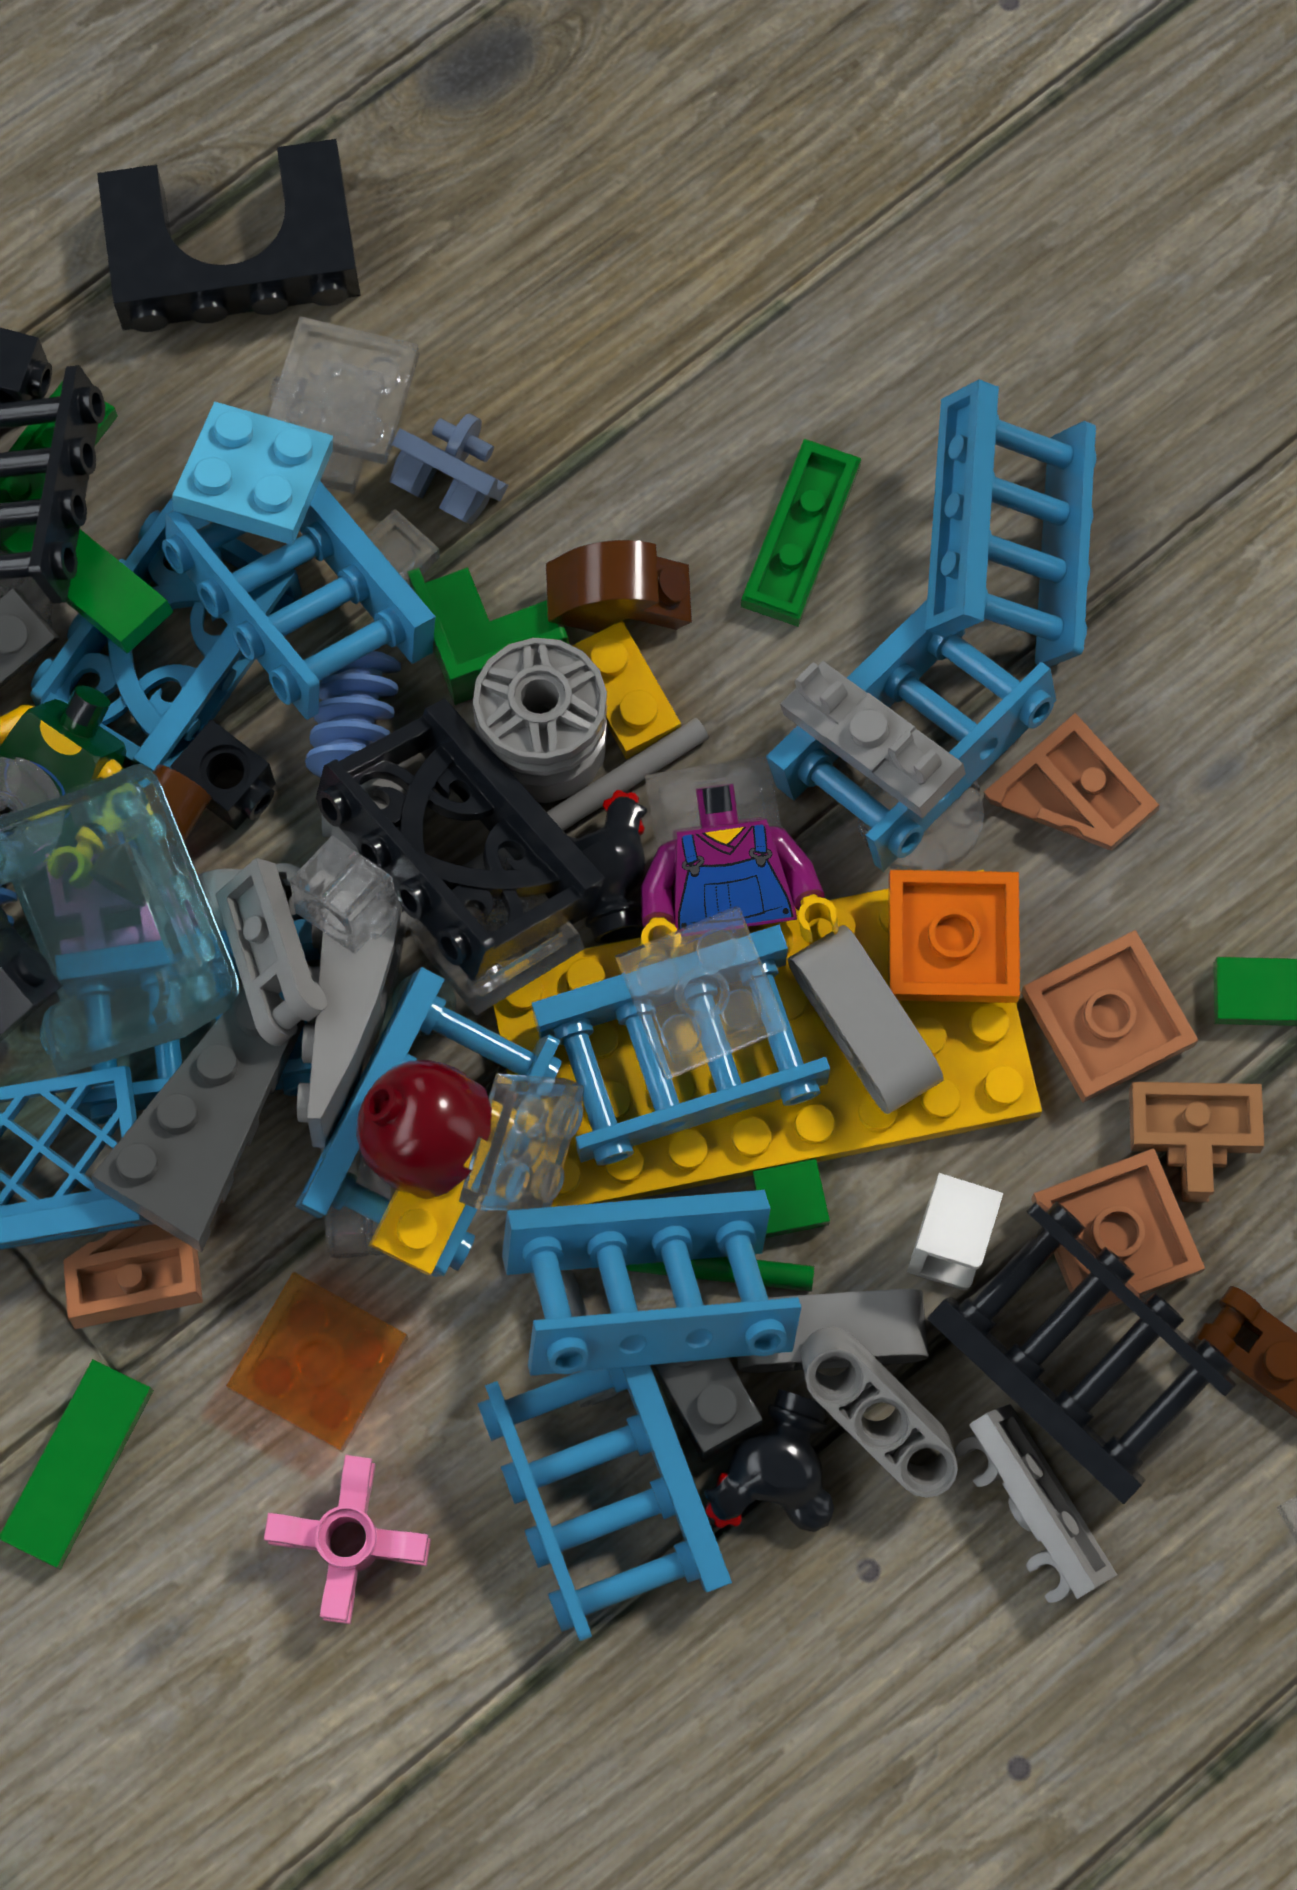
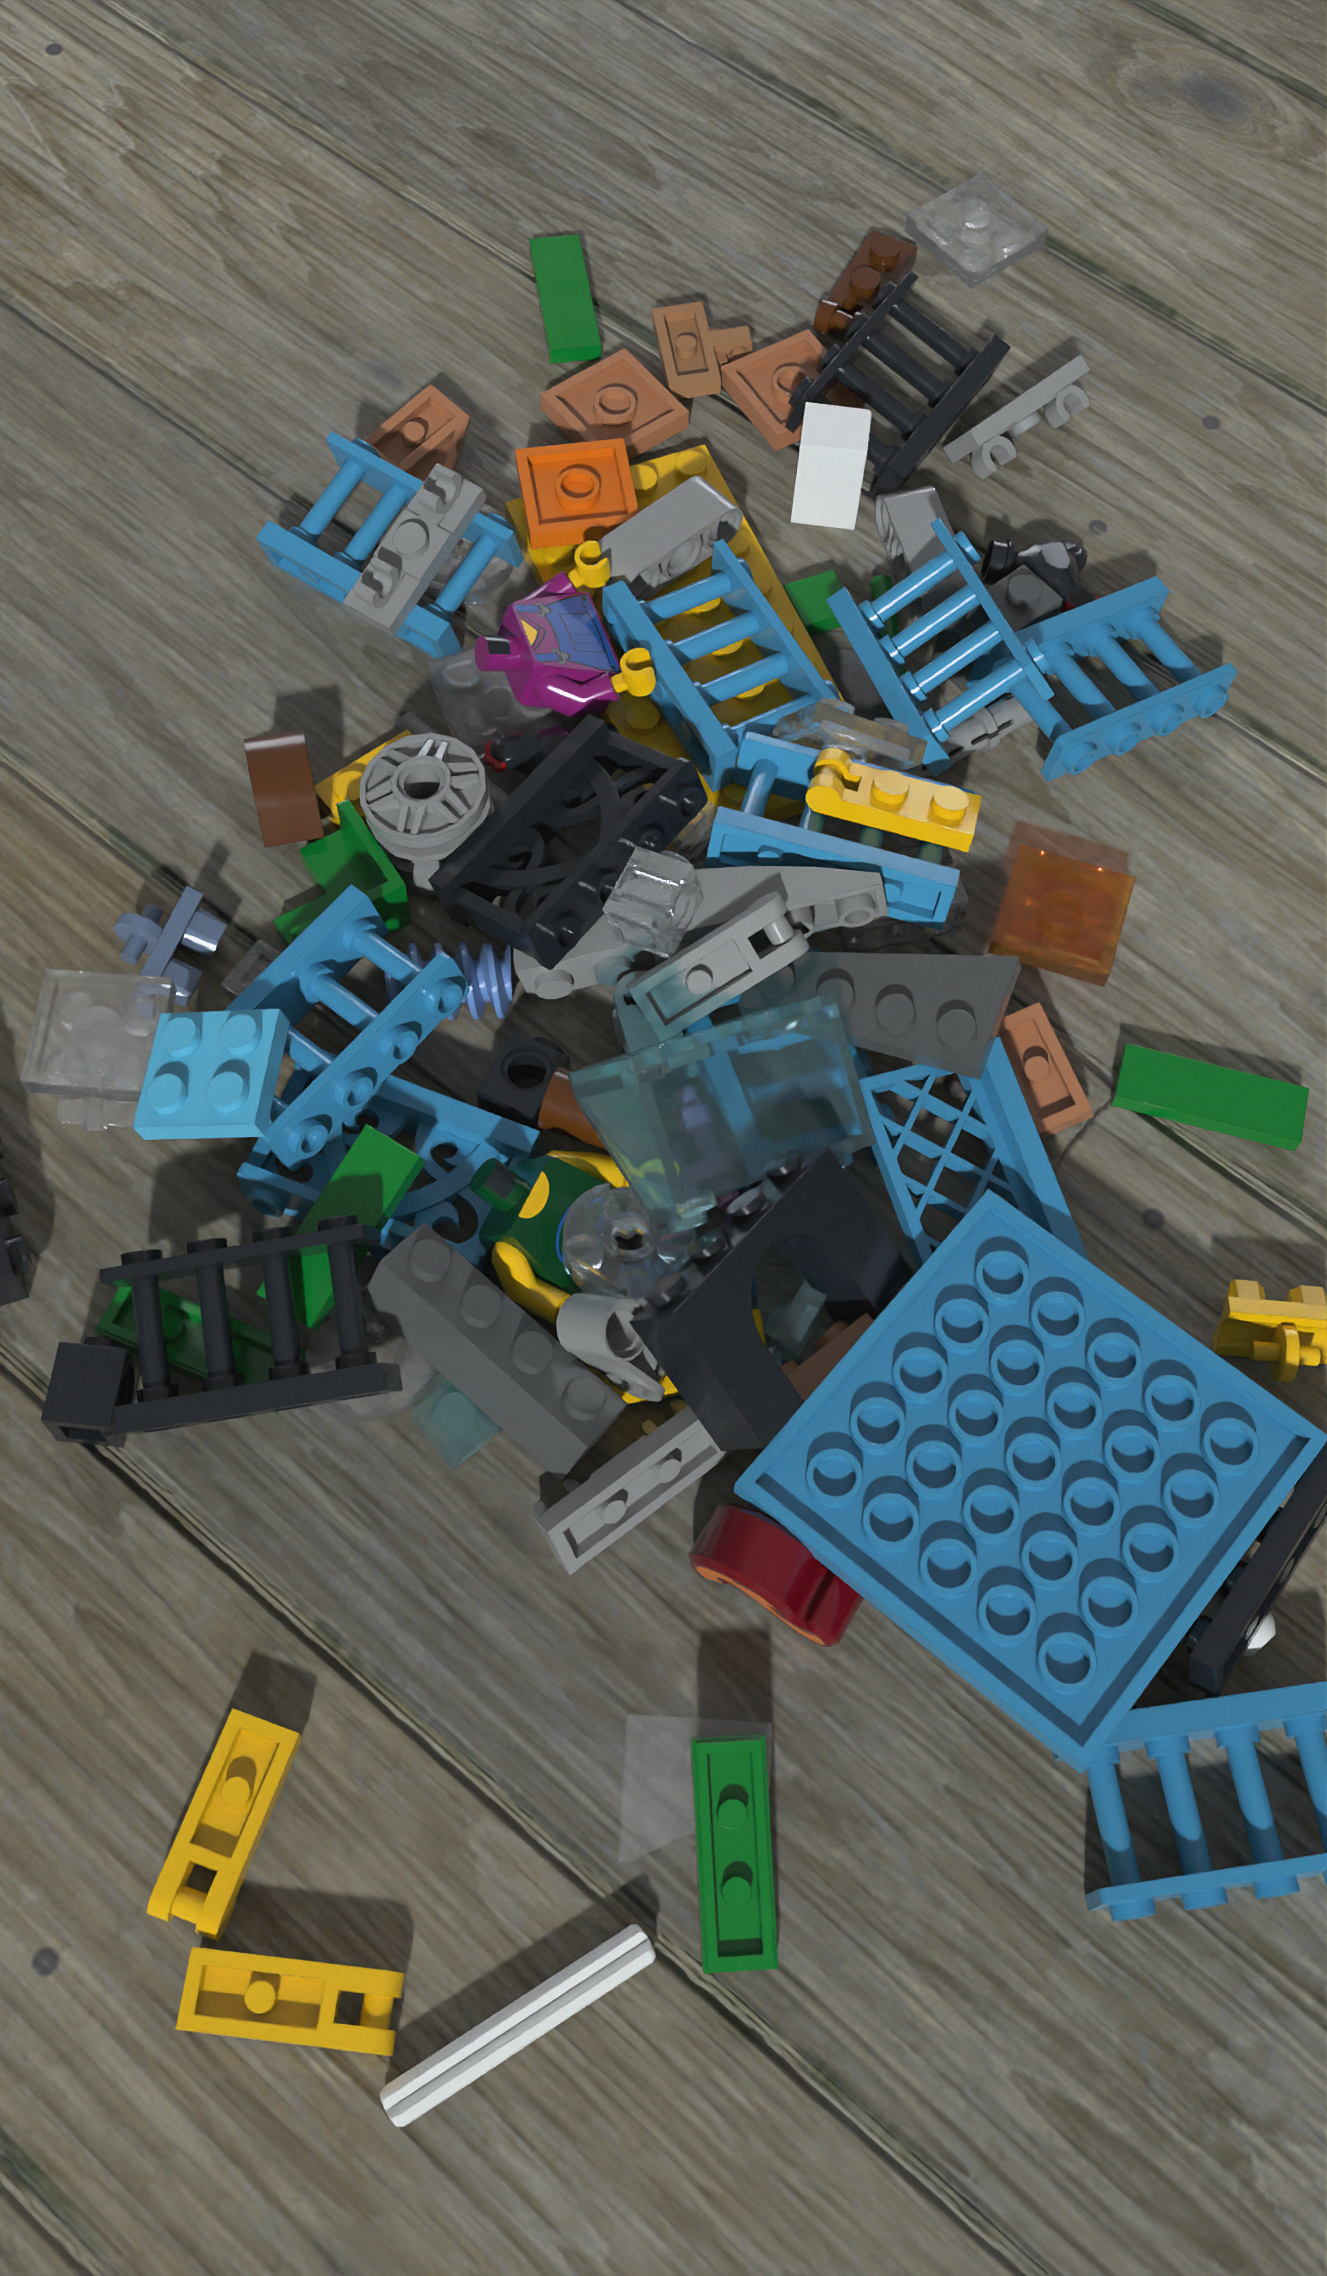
camera: 105 degrees left, 10 degrees down
(316, 1535) = (1207, 863): bright pink pin -> none
(422, 1126) = (870, 753): dark red cylinder -> none
(701, 992) = (683, 621): clear plate -> none
(801, 532) = (202, 672): green tile -> none
(887, 1440) = (993, 493): light grey beam -> none
(963, 534) = (188, 492): dark azure fence -> none

